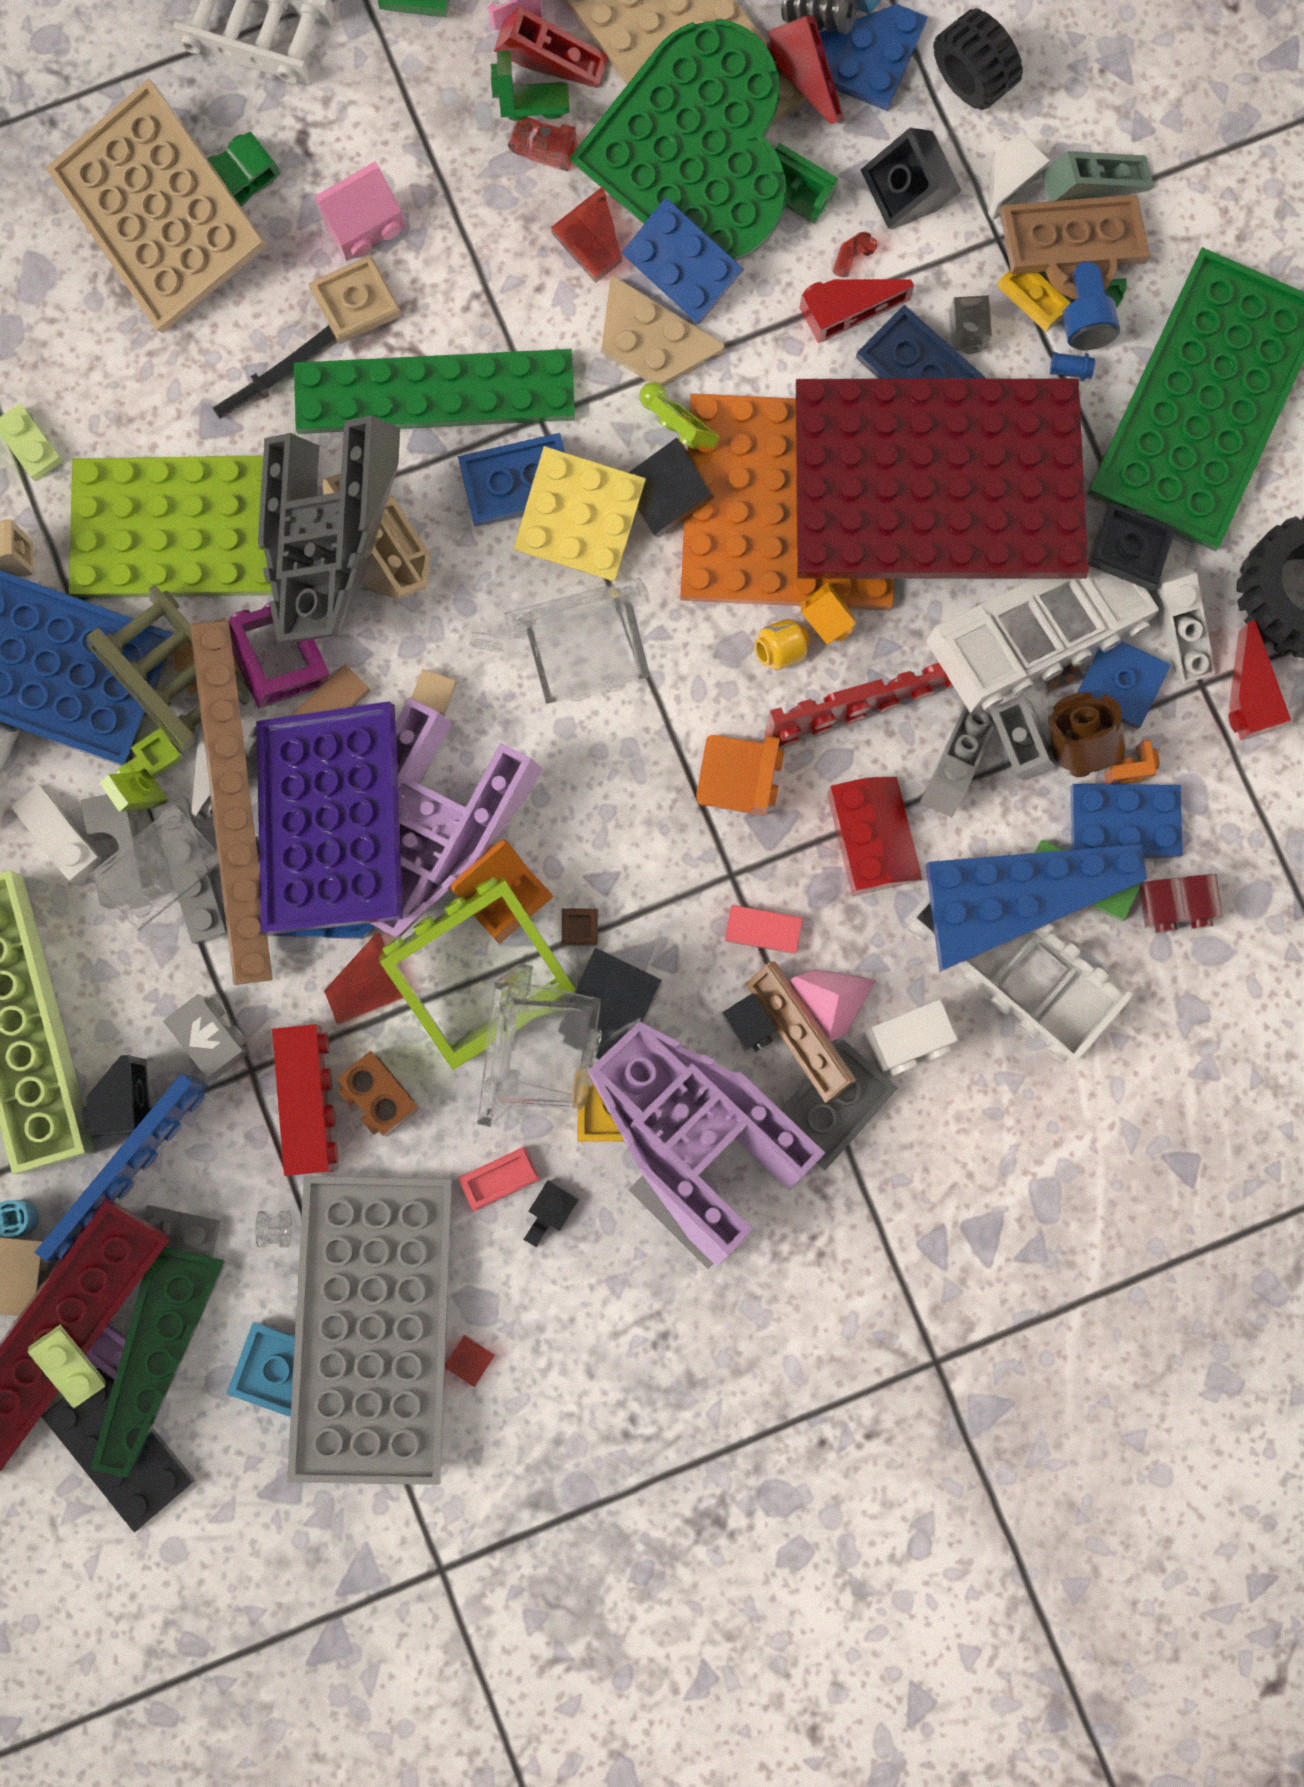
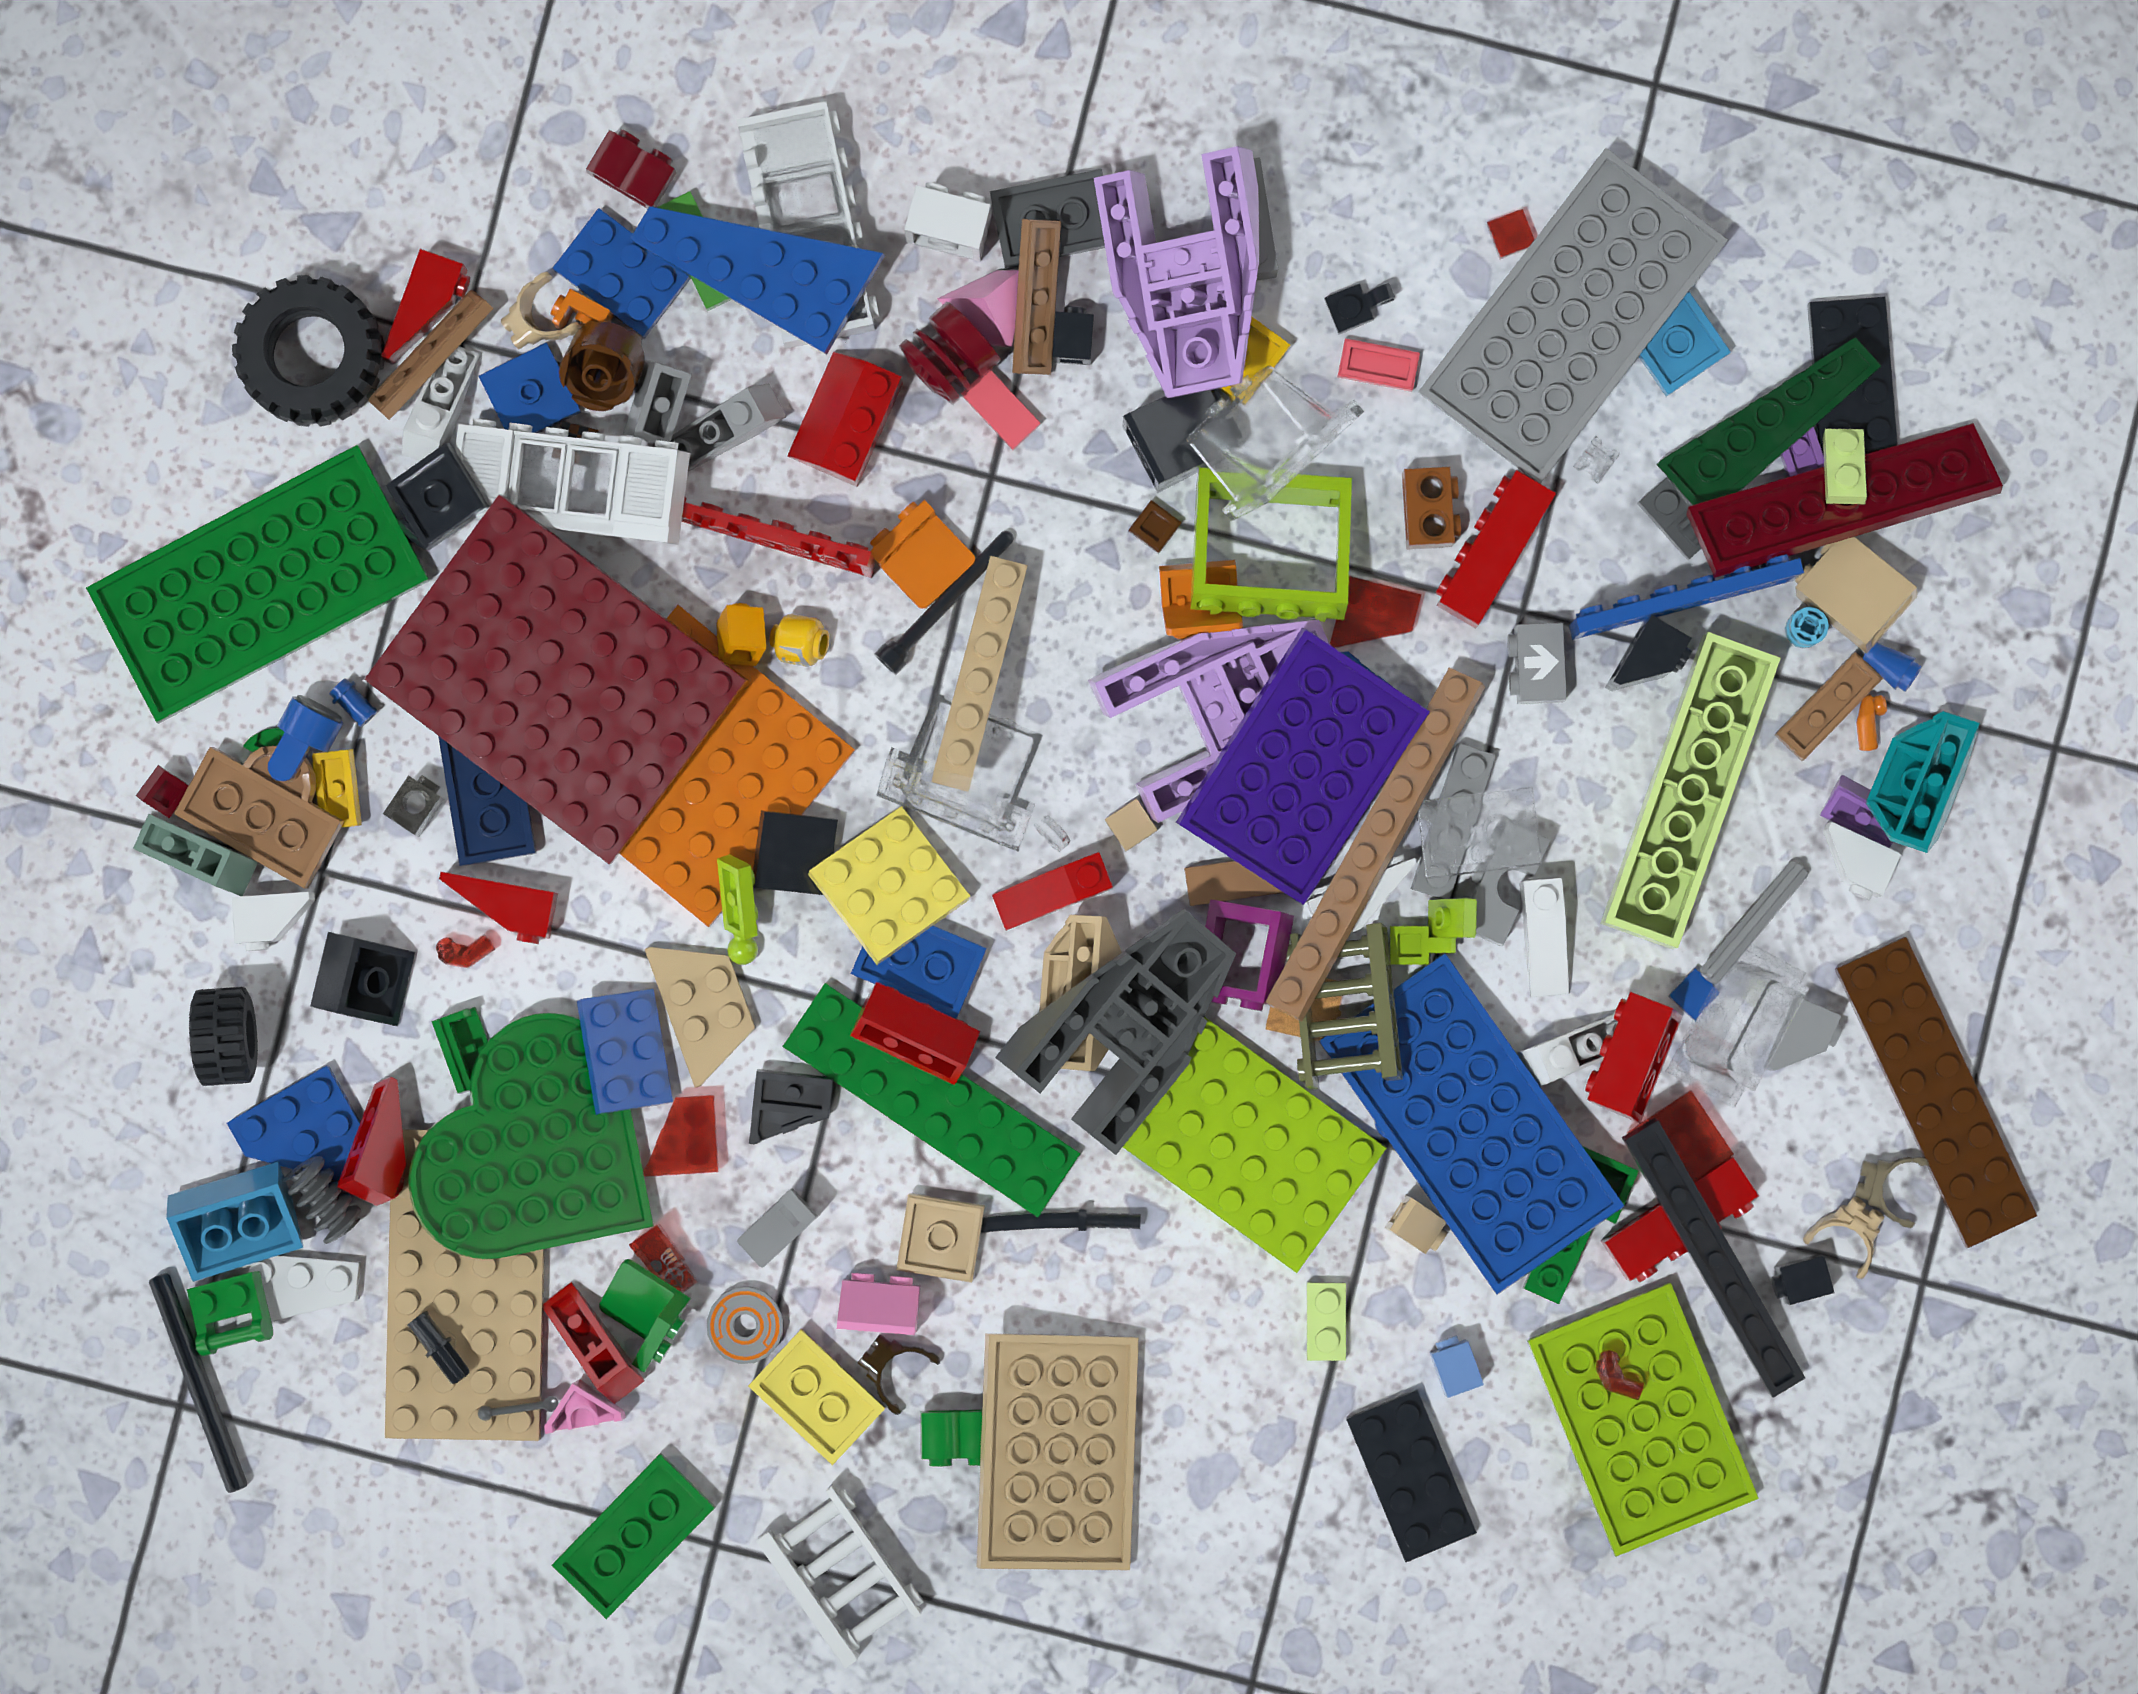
camera: 145 degrees left, 5 degrees up
(333, 177) = (883, 1352): none -> dark brown helmet
(362, 128) = (816, 1397): none -> light yellow plate
(449, 124) = (723, 1333): none -> light grey tile
(453, 602) = (1052, 891): none -> red slope
(478, 223) = (777, 1228): none -> light grey bracket
(479, 421) = (915, 1033): none -> red brick
(537, 313) = (787, 1101): none -> black wing
(627, 709) = (979, 673): none -> tan brick
(703, 686) = (895, 653): none -> black piece
(833, 936) = (949, 353): none -> dark red wheel
(1157, 204) = (163, 791): none -> dark red plate
(1172, 730) = (521, 319): none -> tan helmet
(1219, 653) = (430, 354): none -> medium nougat tile

